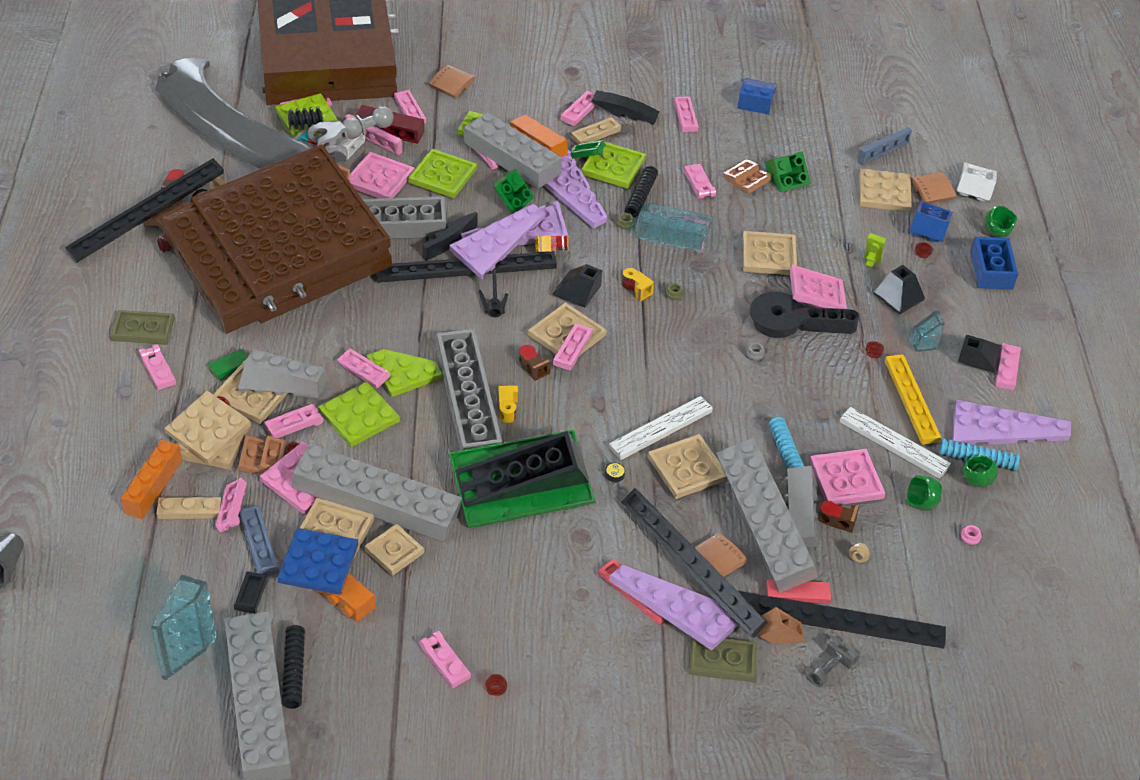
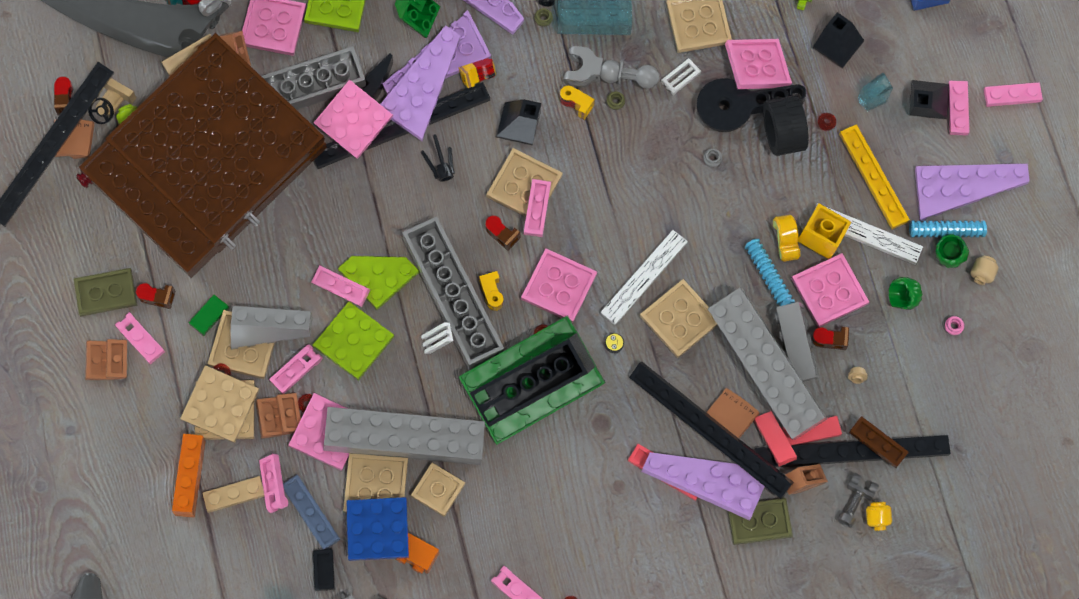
camera: 15 degrees left, 25 degrees up
(117, 376) = (106, 360): none -> nougat slope
(188, 338) = (155, 296): none -> leg
(424, 247) = (353, 119): none -> bright pink plate
(440, 423) = (429, 339): none -> white tile
(575, 410) = (559, 285): none -> bright pink plate
(660, 263) = (610, 71): none -> light grey piece
(743, 290) = (669, 86): none -> white tile
(758, 584) = (775, 438): none -> coral tile
(813, 424) = (787, 237): none -> yellow animal
(832, 333) = (785, 125): none -> black tyre
(851, 427) = (824, 231): none -> yellow slope
(854, 680) = (879, 515): none -> yellow head
(868, 610) = (878, 442): none -> reddish brown plate
(1011, 494) = (984, 270): none -> tan head
(1064, 368) = (1013, 94): none -> bright pink plate

